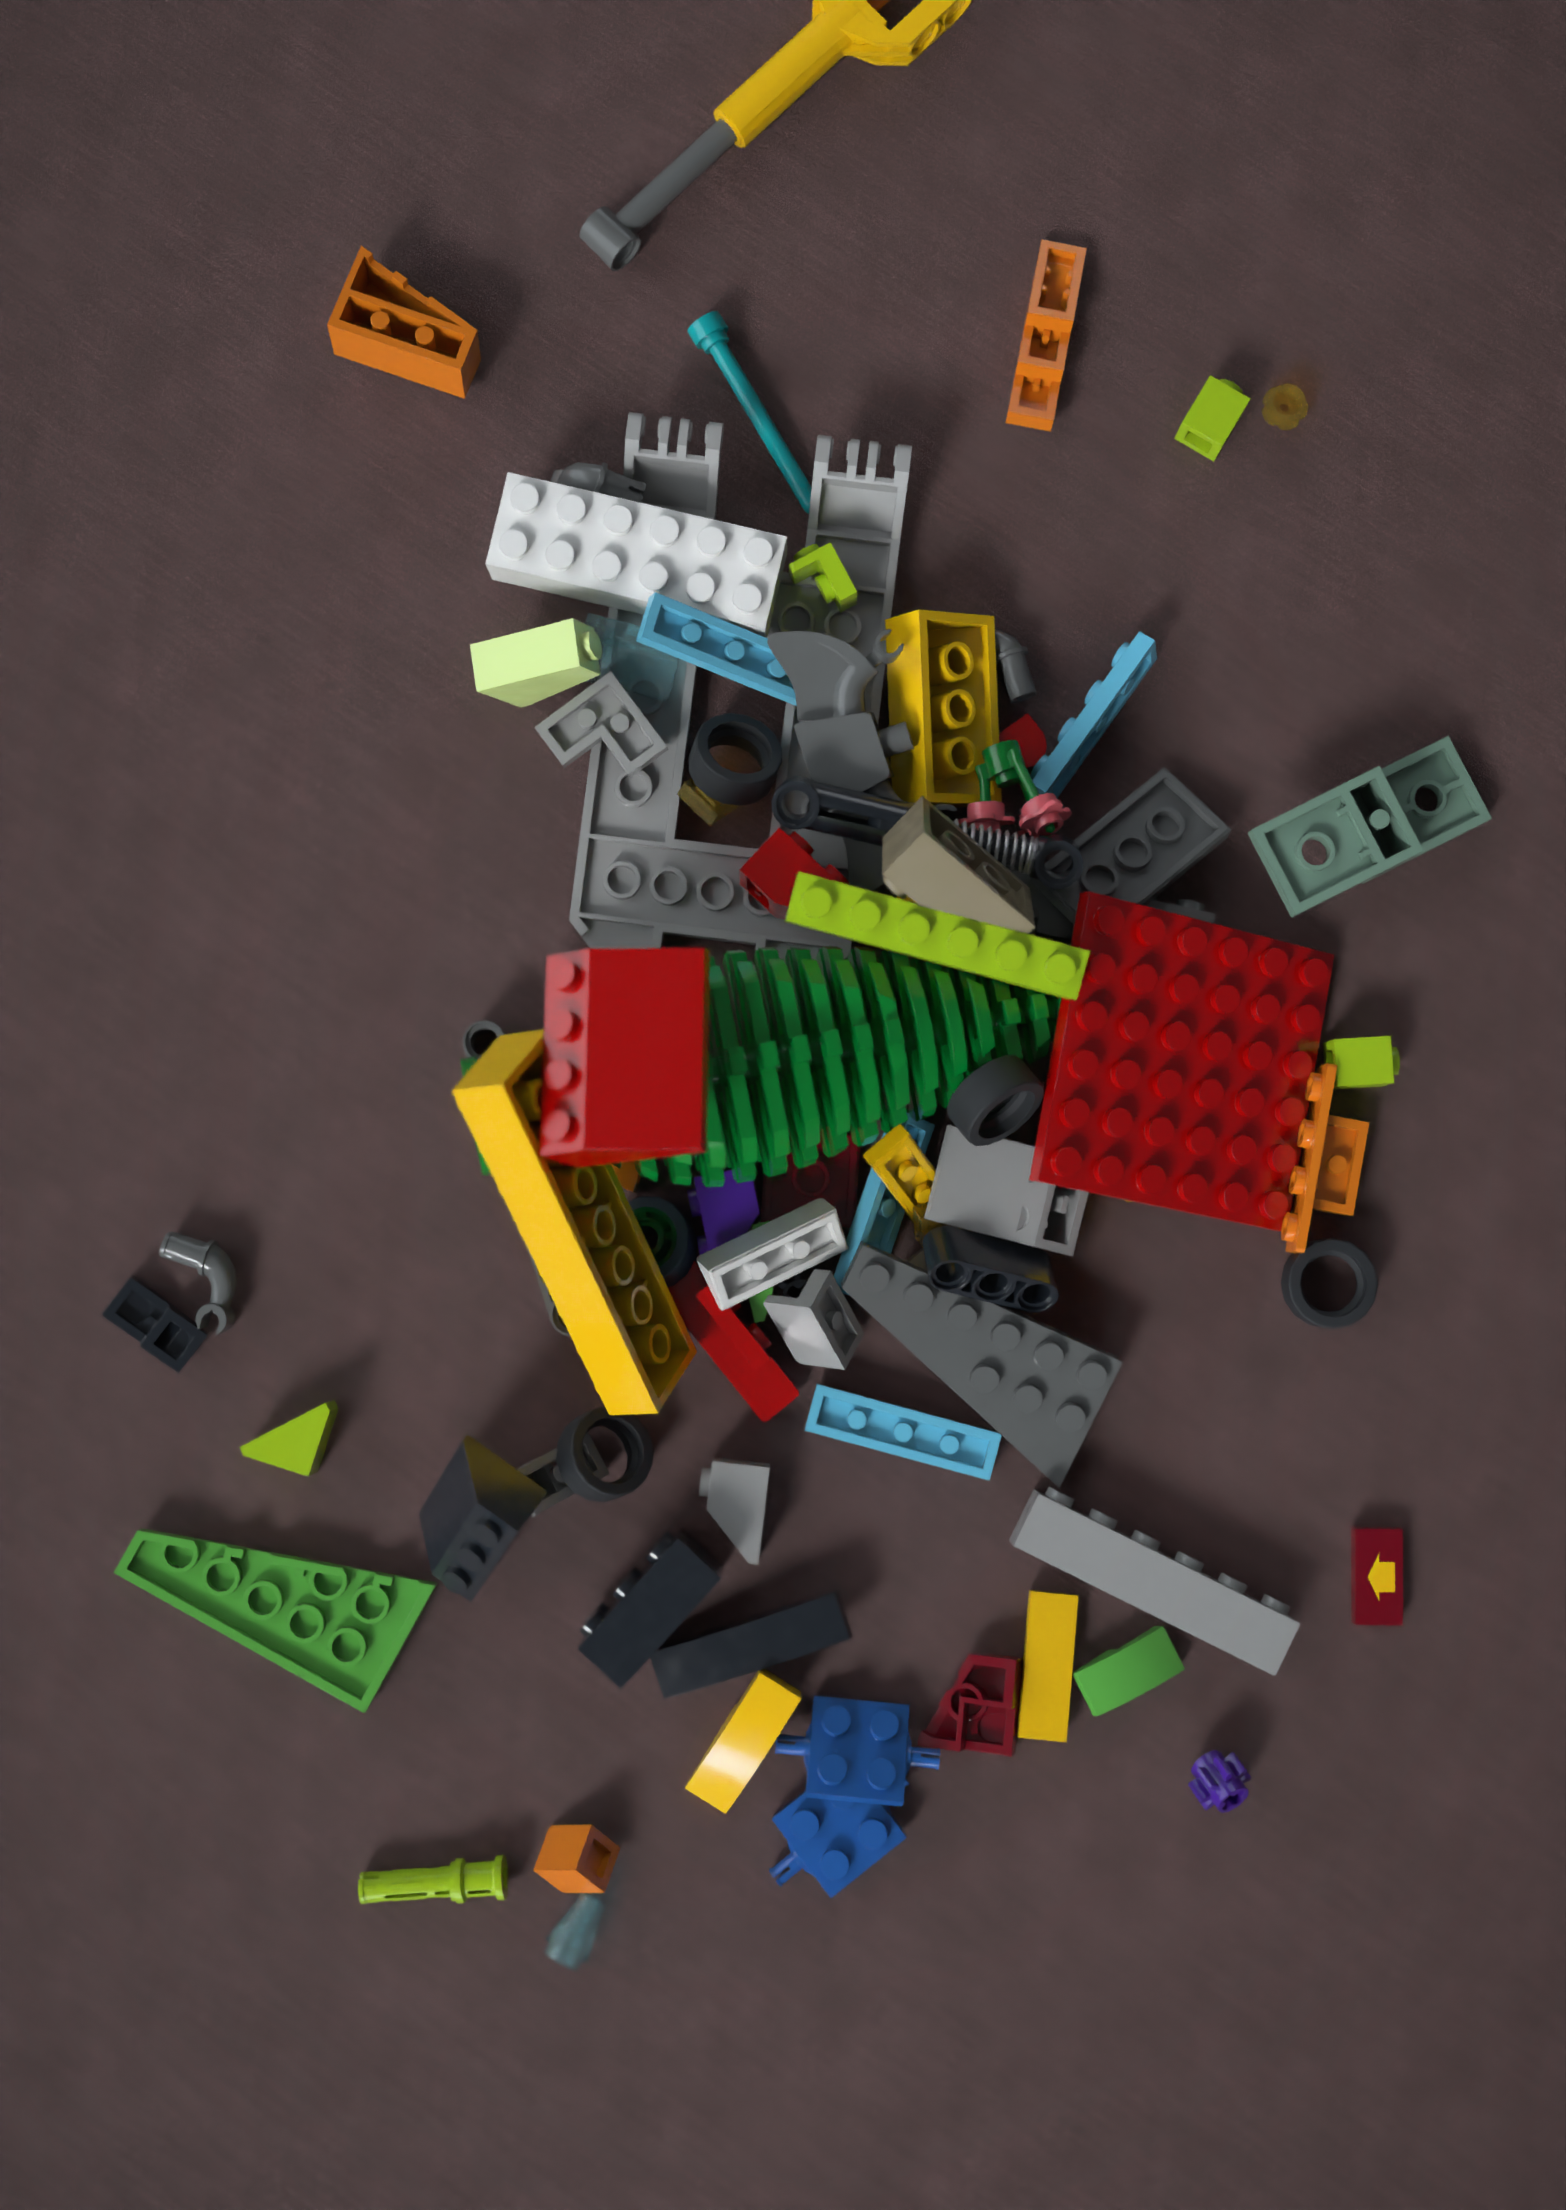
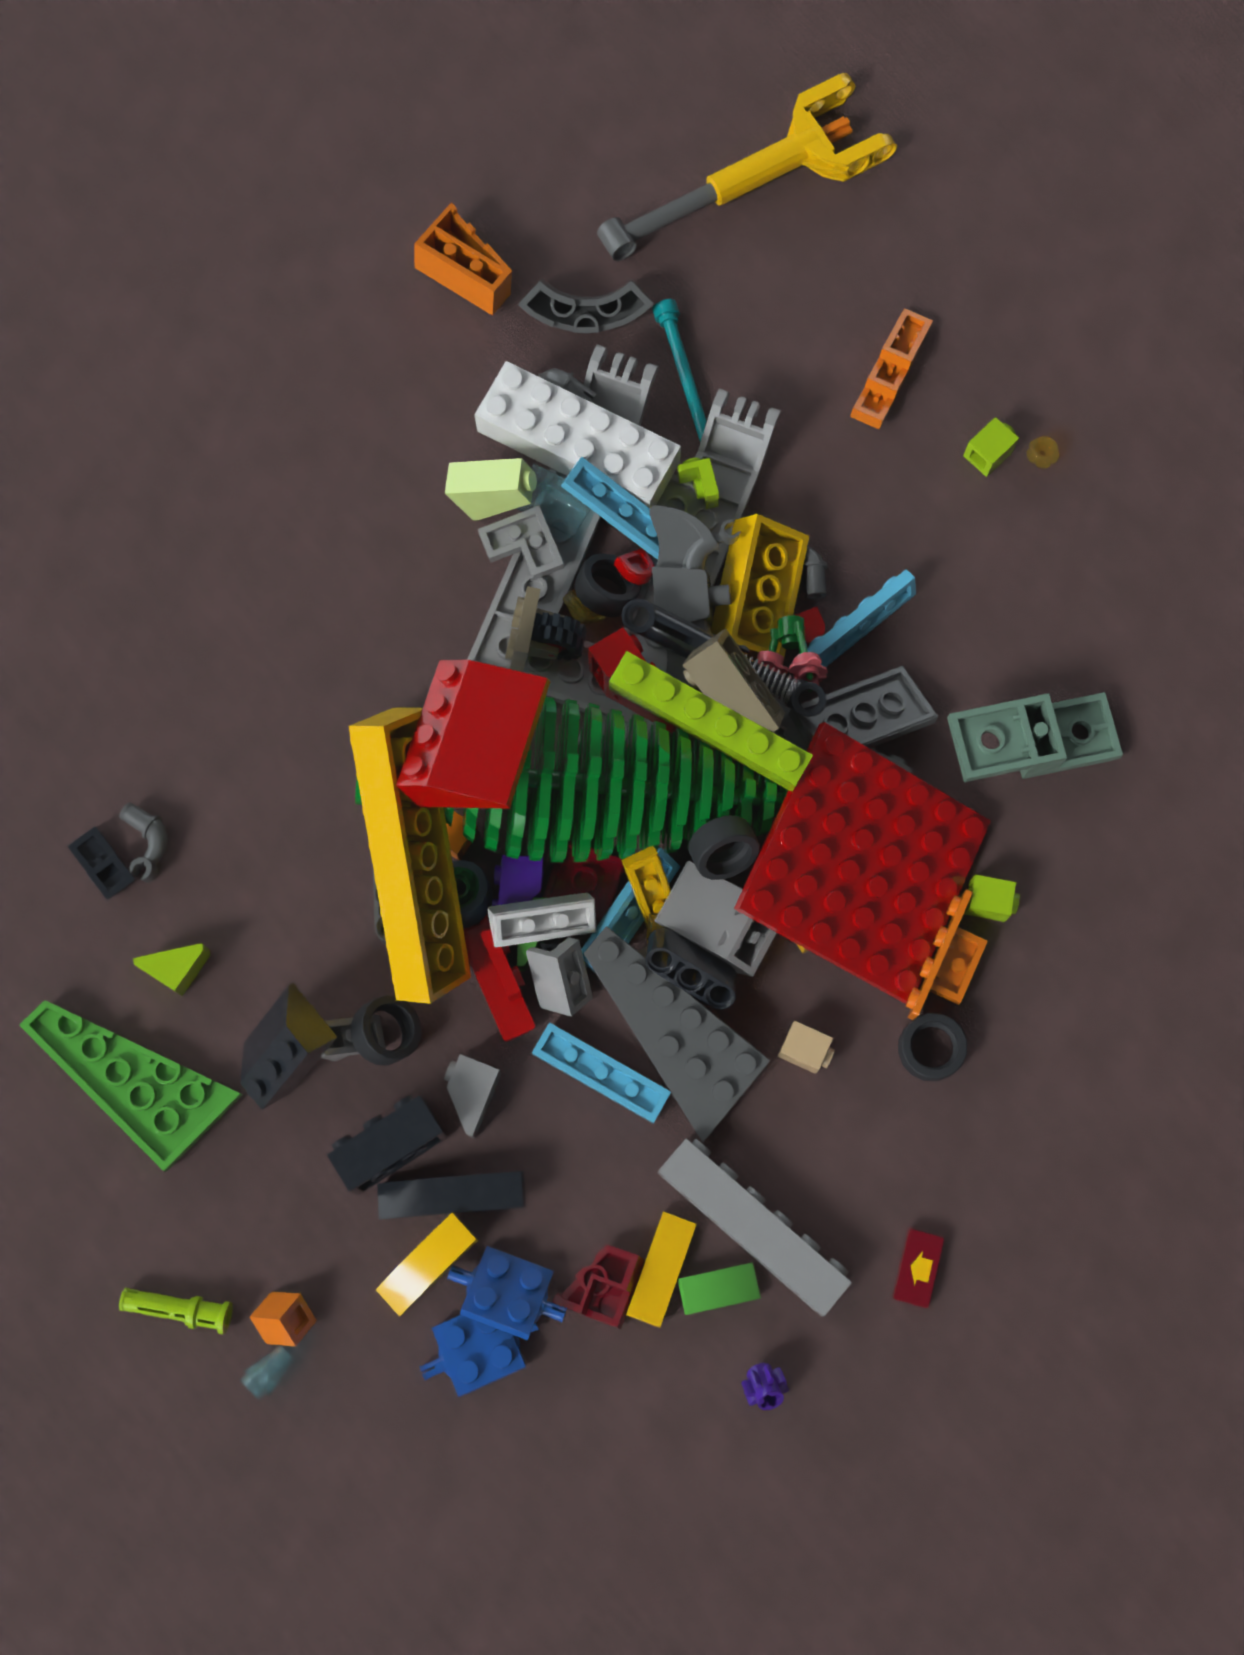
camera: 15 degrees right, 10 degrees down
(597, 361) = (586, 313): none -> dark grey brick
(665, 857) = (542, 633): none -> plate
(767, 723) = (635, 566): none -> red tile
(1164, 1328) = (806, 1048): none -> tan brick

